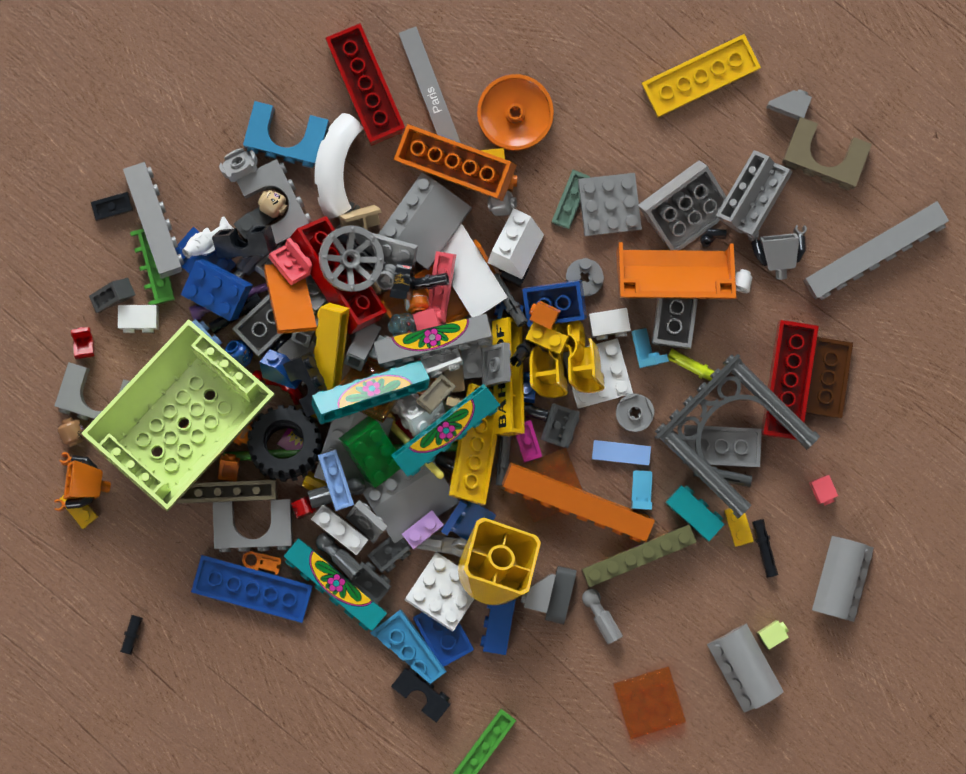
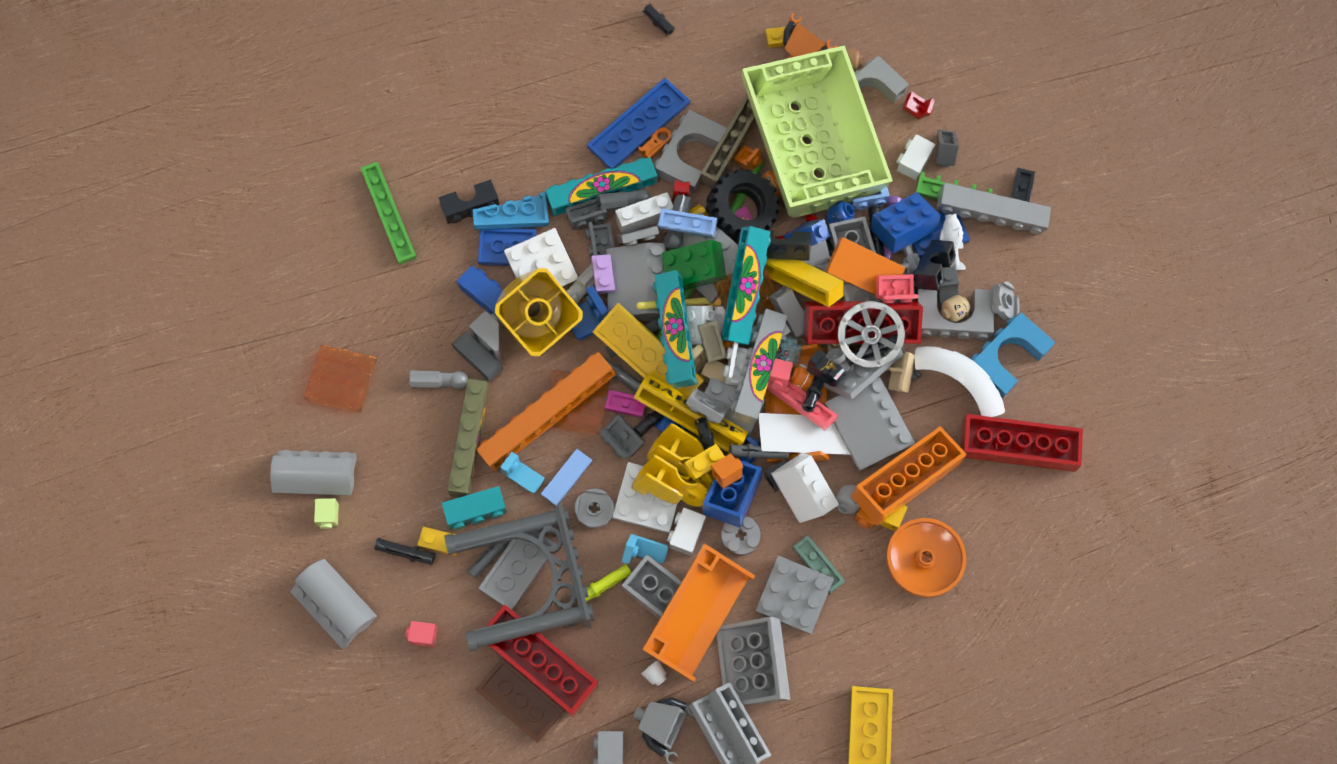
camera: 115 degrees right, 15 degrees down
(428, 84) = (990, 499): light grey tile -> none
(711, 234) = (713, 670): black arm -> none

